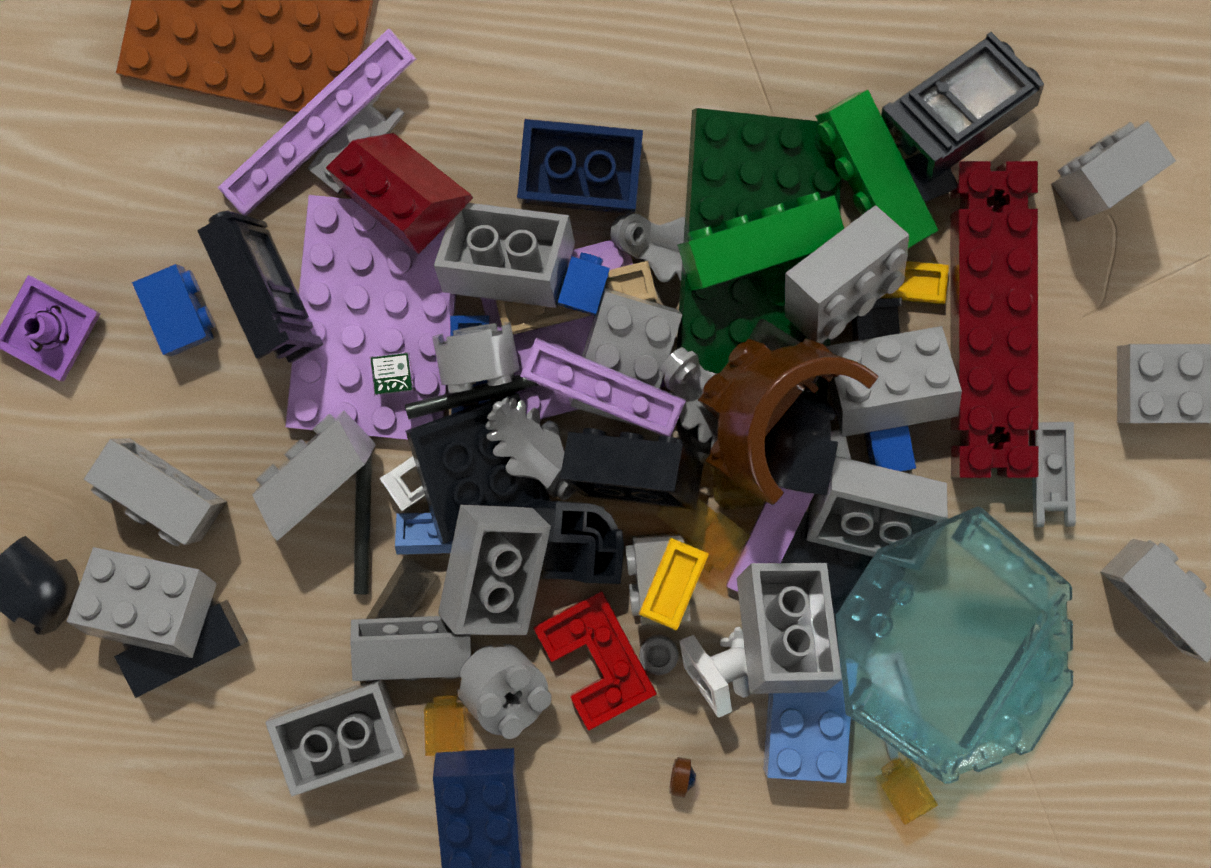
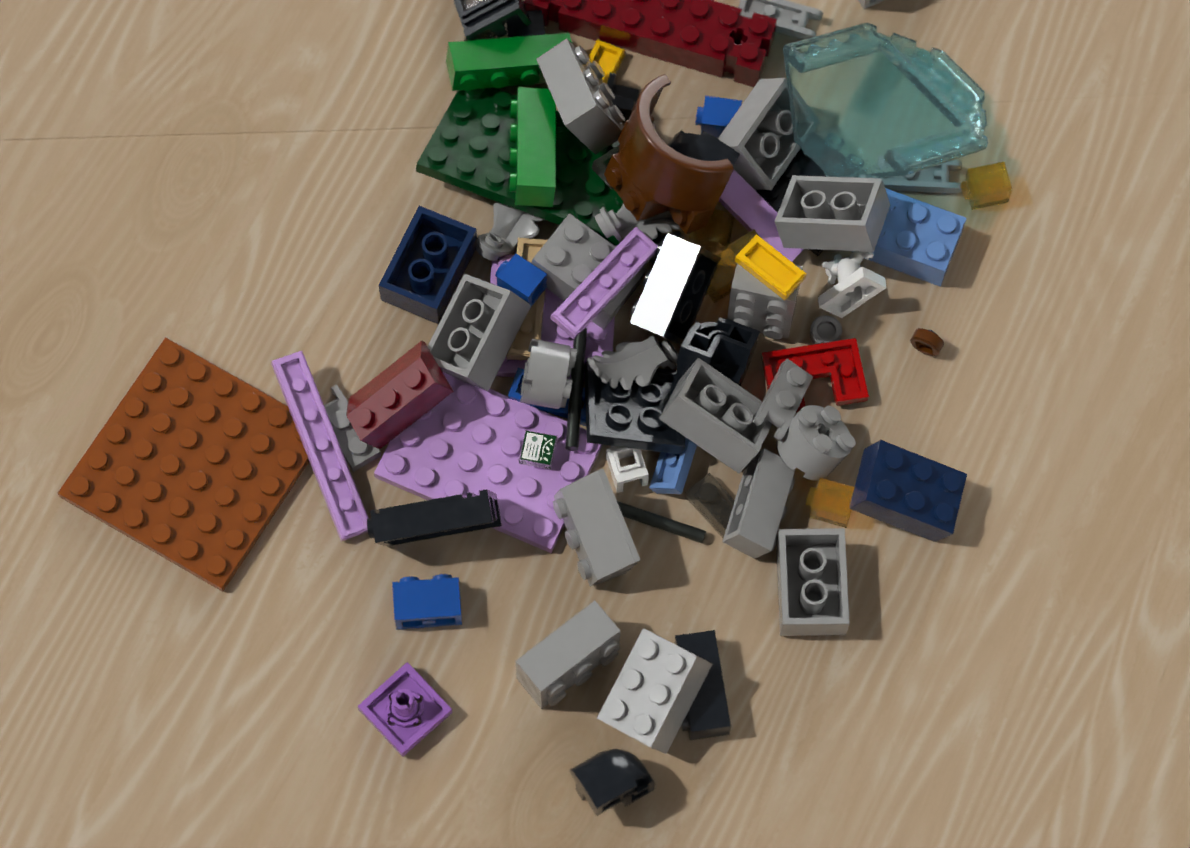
camera: 75 degrees left, 20 degrees down
(542, 637) = (783, 397): none -> light grey hinge
(913, 382) = (685, 99): light grey brick -> none

